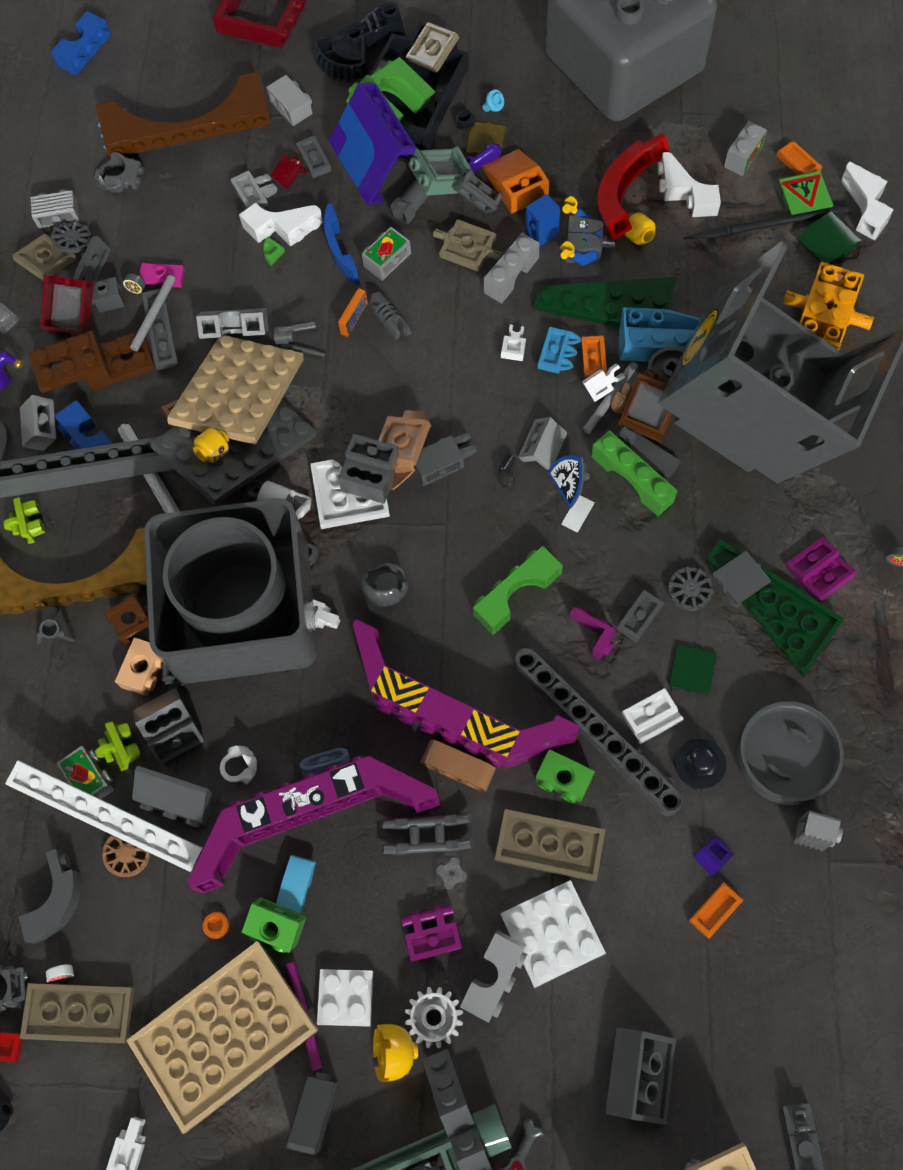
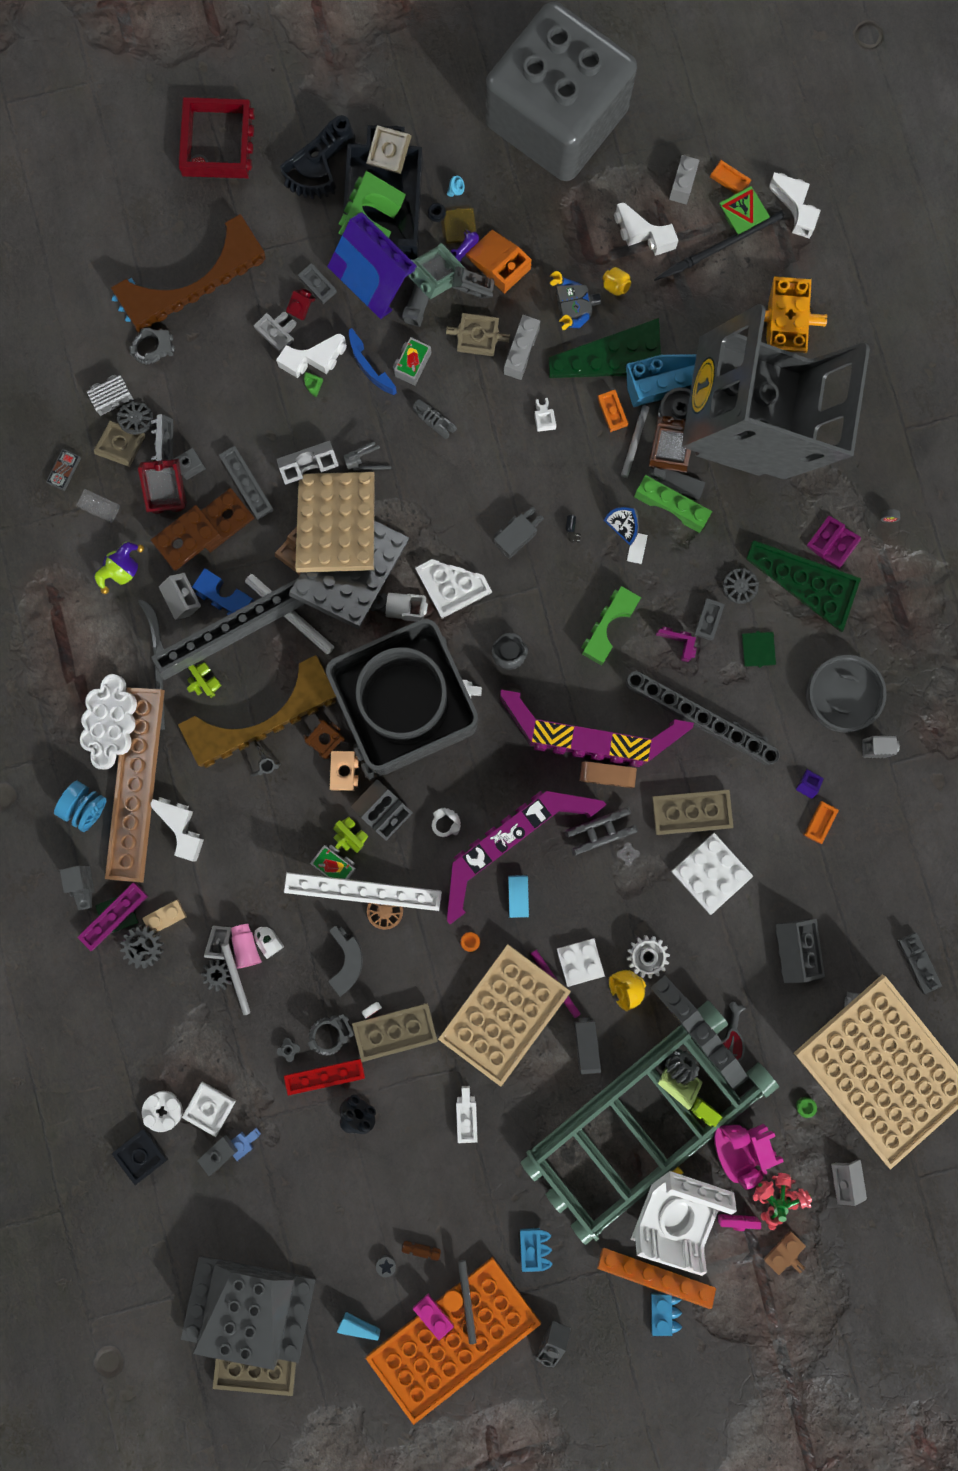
camera: 25 degrees left, 15 degrees up
(75, 54) = (62, 236): blue arch -> none
(134, 283) = (208, 447): dark grey tile -> none
(151, 315) = (236, 471): light grey bar -> none
(157, 273) = (227, 432): dark pink plate -> none
(173, 797) = (407, 863): dark grey slope -> none
(211, 445) = (340, 582): yellow head -> none
(288, 922) = (507, 922): bright green brick -> none
(289, 100) = (276, 232): light grey brick -> none
(319, 762) = (509, 801): sand blue plate -> none
(352, 312) = (402, 424): orange tile -> none
(368, 468) = (468, 562): dark grey piece -> none
(409, 435) = (484, 533): medium nougat piece -> none
(431, 941) = (631, 904): magenta plate -> none
(484, 998) = (680, 933): light grey arch -> none
(542, 220) = (535, 297): blue panel -> none
(543, 442) = (593, 496): light grey panel -> none
(556, 764) = (700, 760): bright green brick -> none
(557, 349) = (580, 411): dark azure plate -> none
(600, 383) = (625, 432): white plate -> none
(620, 176) = (585, 241): red arch -> none
(620, 398) = (645, 442): medium nougat cylinder -> none
(652, 716) = (739, 694): white plate -> none
(700, 764) = (783, 720): black plate -> none
(741, 577) = (777, 567): dark grey piece -> none
(828, 239) = (773, 249): dark green slope -> none

